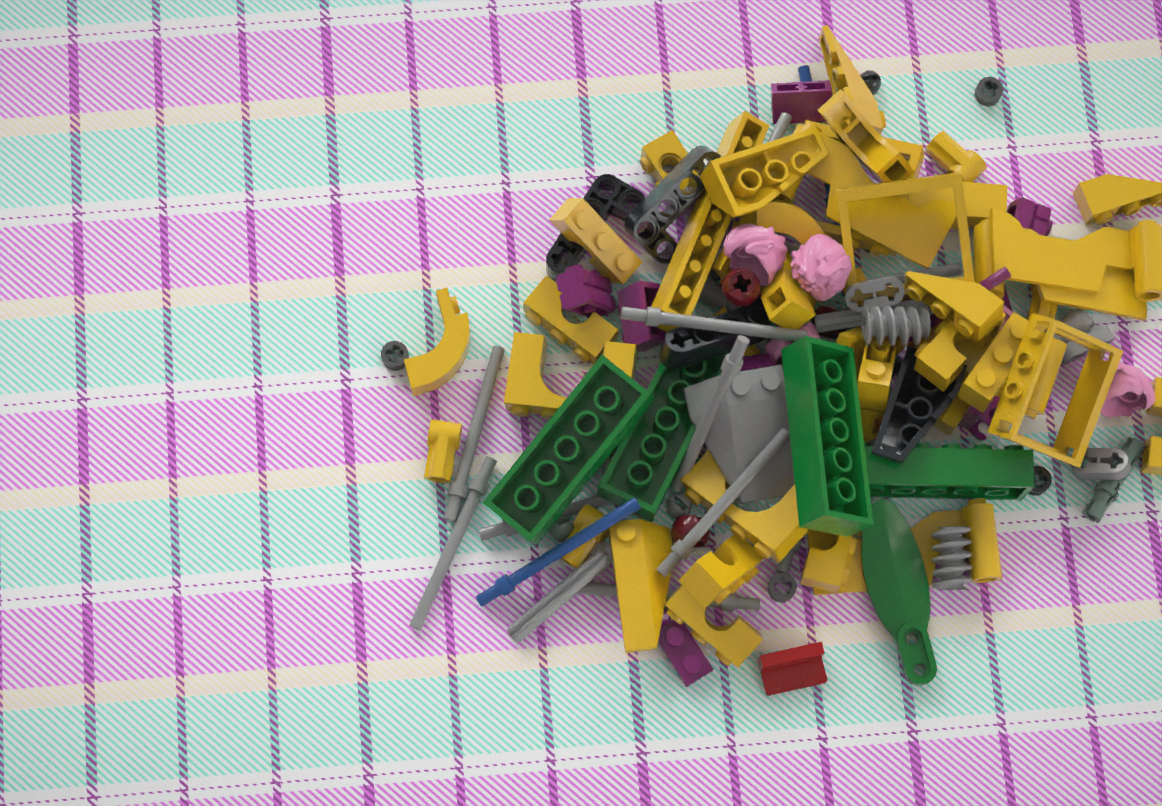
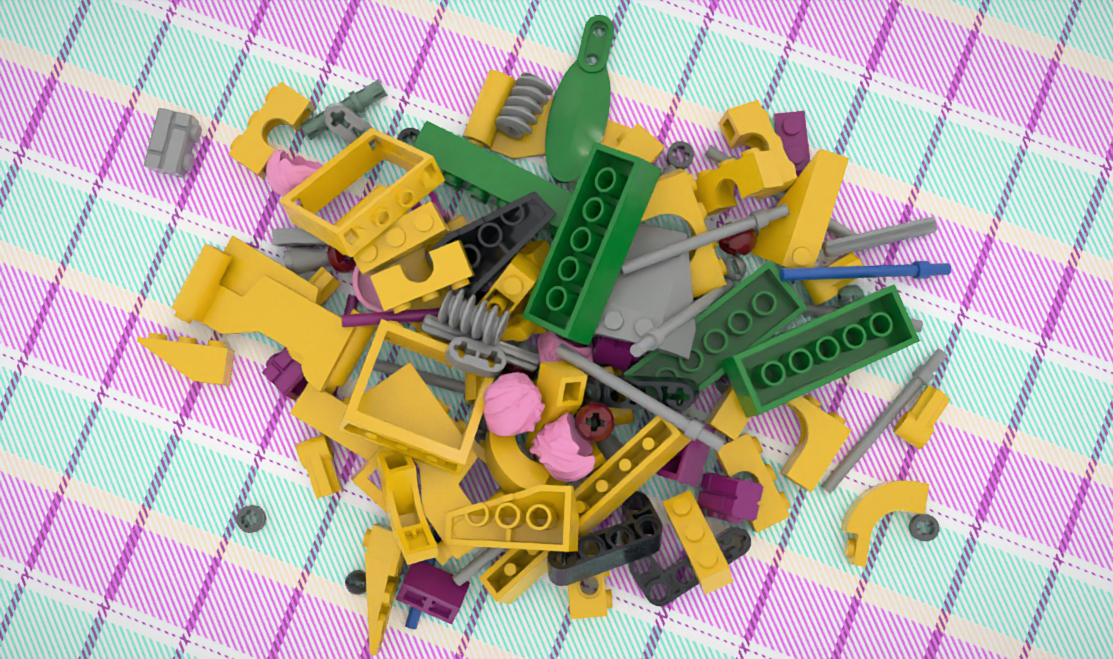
camera: 145 degrees left, 10 degrees up
(478, 488) = (904, 368): light grey bar -> none
(792, 668) = (706, 83): red panel -> none
(961, 302) = (404, 299): yellow slope -> none

